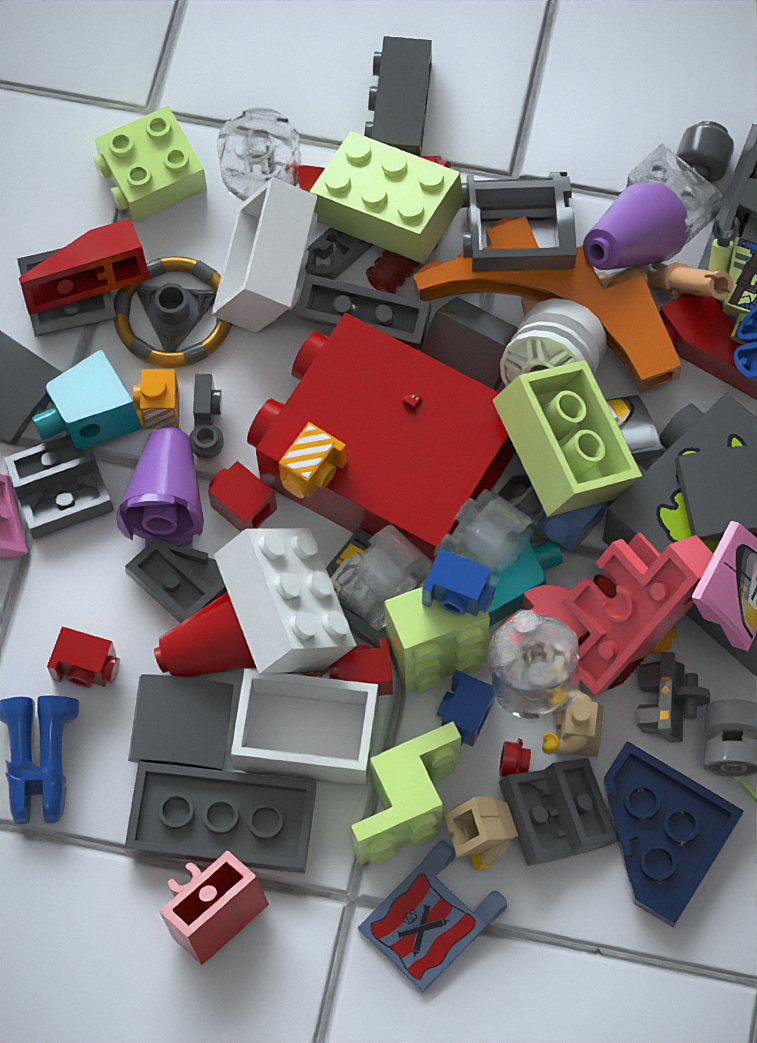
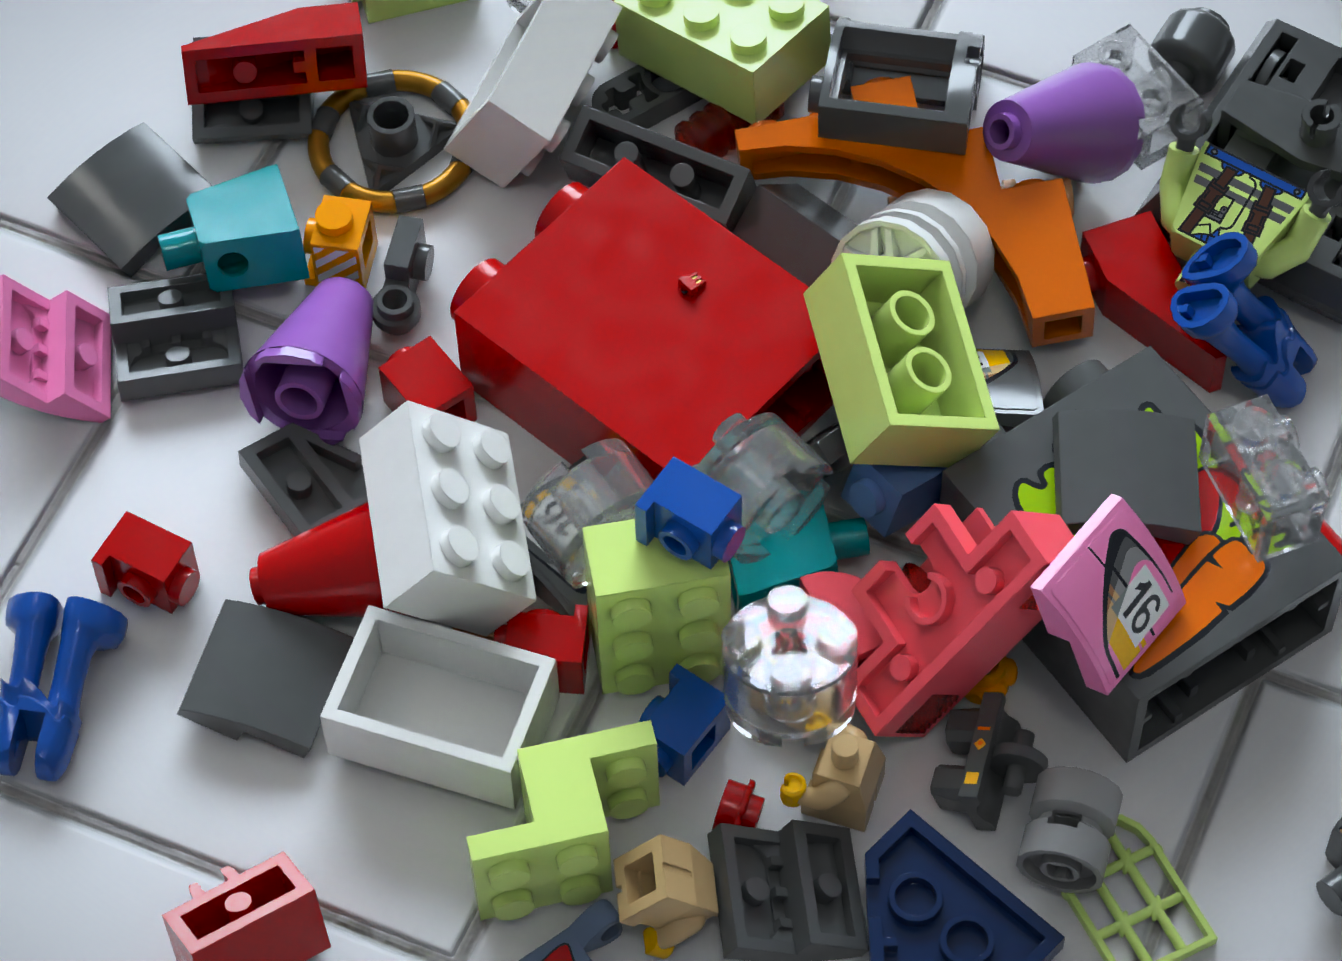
camera: 10 degrees right, 10 degrees down
(209, 811) = (254, 796): dark grey plate -> none
(311, 461) = (525, 333): light orange brick -> none
(680, 279) = (1122, 199): light nougat pin -> none

